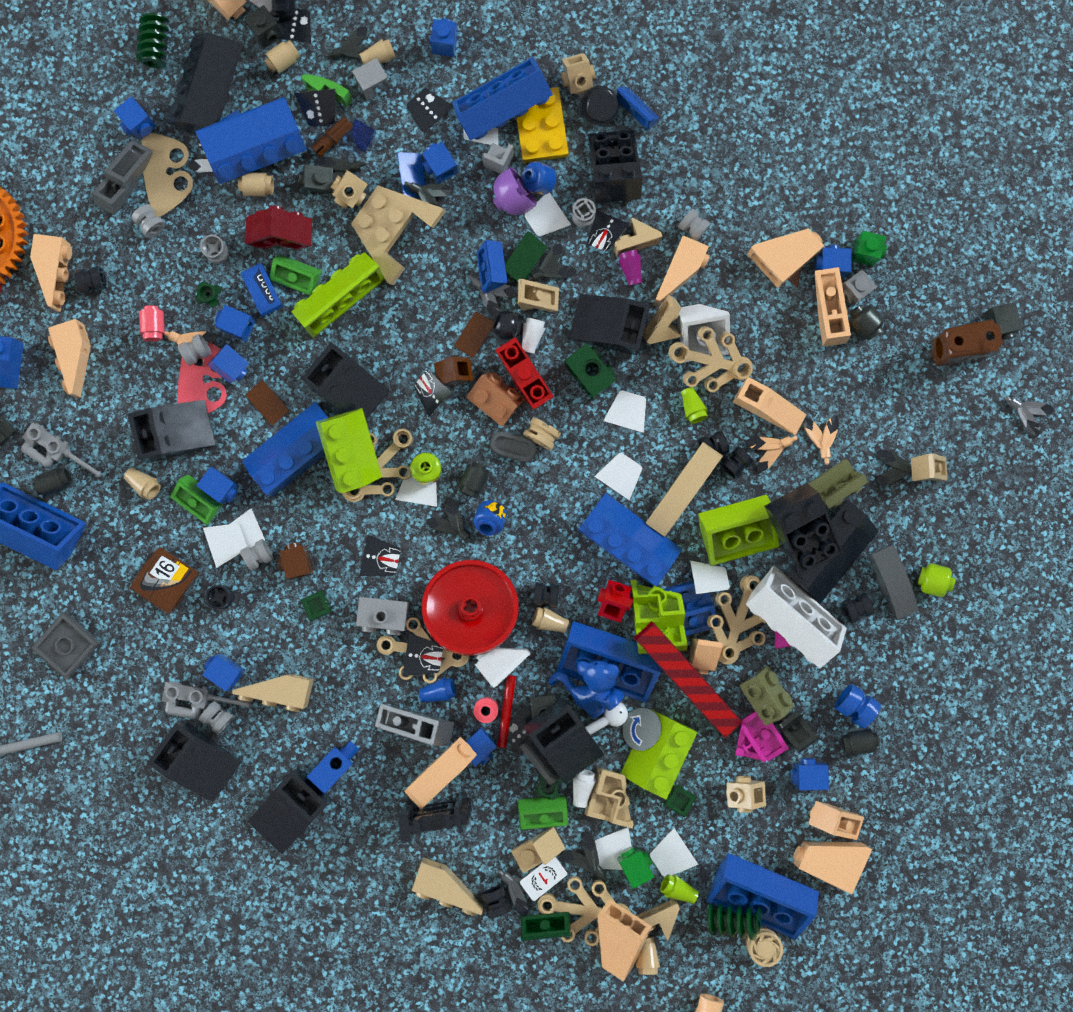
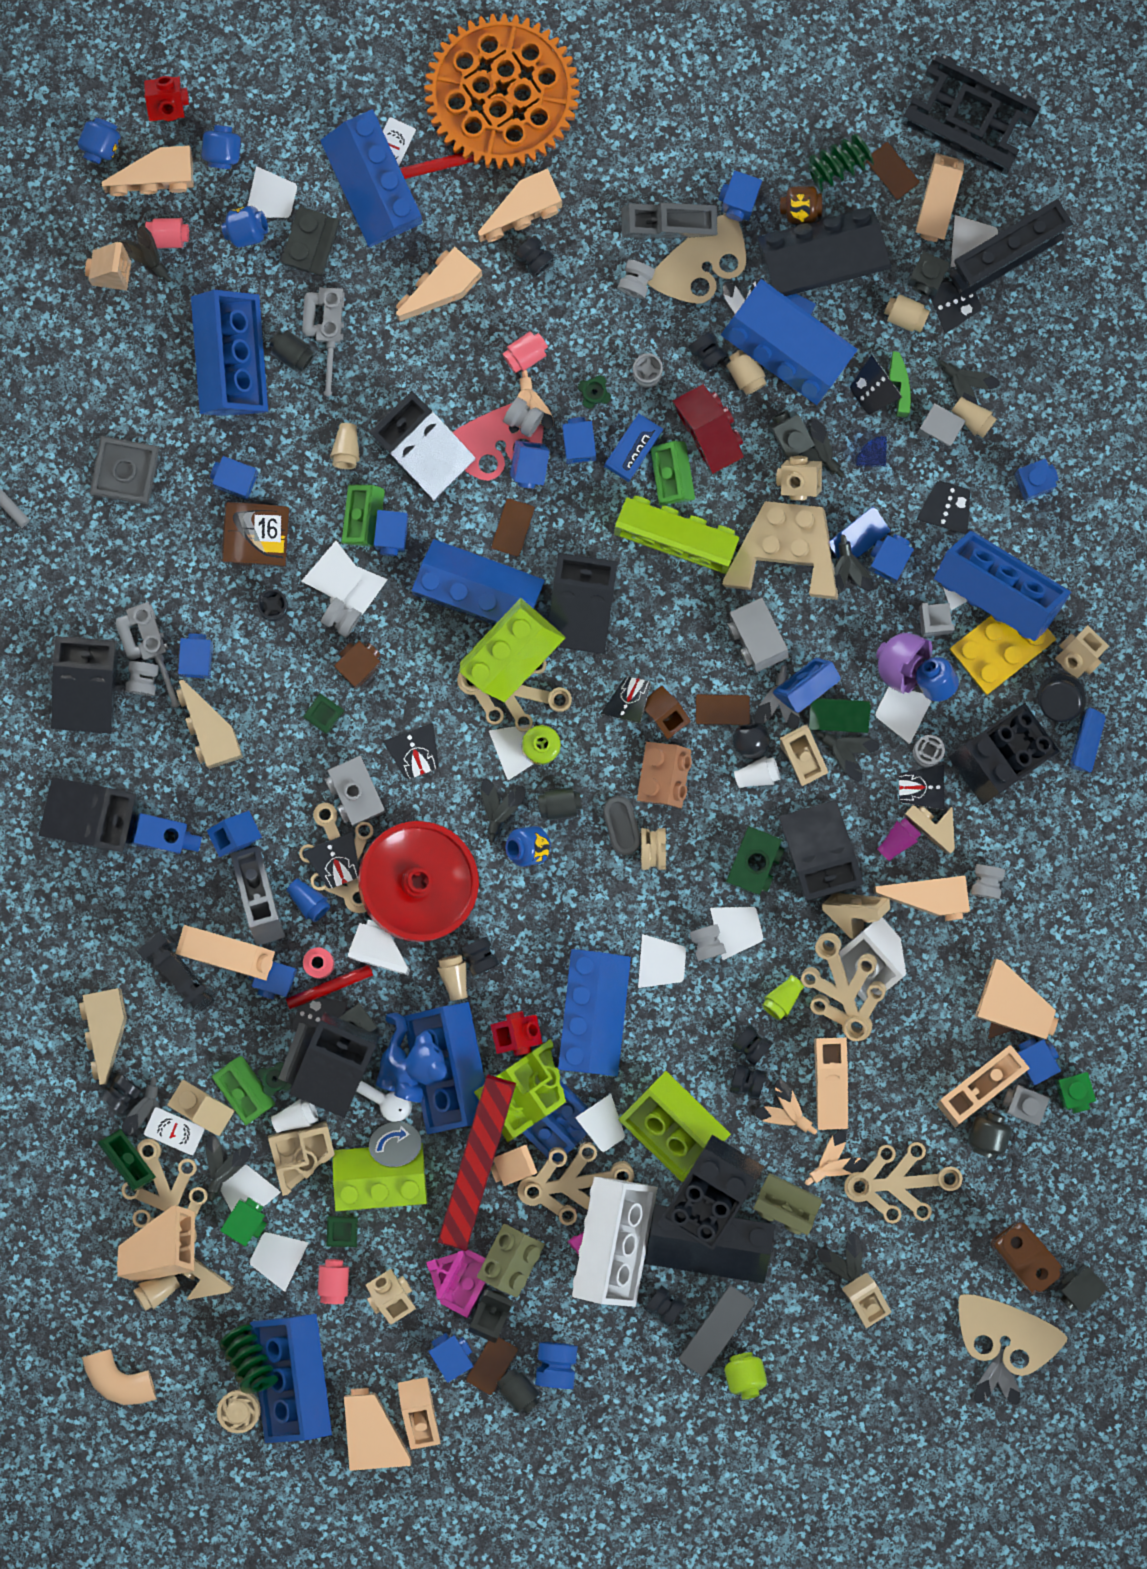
camera: 60 degrees right, 0 degrees up
(115, 572) = (234, 477): none -> blue brick
(165, 81) = (801, 205): none -> reddish brown head
(183, 13) = (893, 171): none -> reddish brown sticker
(226, 201) = (708, 351): none -> black wheel
(331, 136) = (850, 422): reddish brown axle -> none
(361, 716) = (239, 830): none -> blue brick
(438, 279) = (758, 635): none -> light grey brick
(524, 374) = (707, 791): red slope -> none
(628, 435) = (707, 942): none -> light grey wheel
(677, 889) = (246, 1283): lime cone -> none
(684, 489) = (683, 1039): tan slope -> none
(712, 827) = (333, 1282): none -> coral brick
(830, 749) = (491, 1365): none -> reddish brown sticker
(861, 402) = (897, 1183): none -> tan plant
(990, 390) = (995, 1319): none -> tan piece

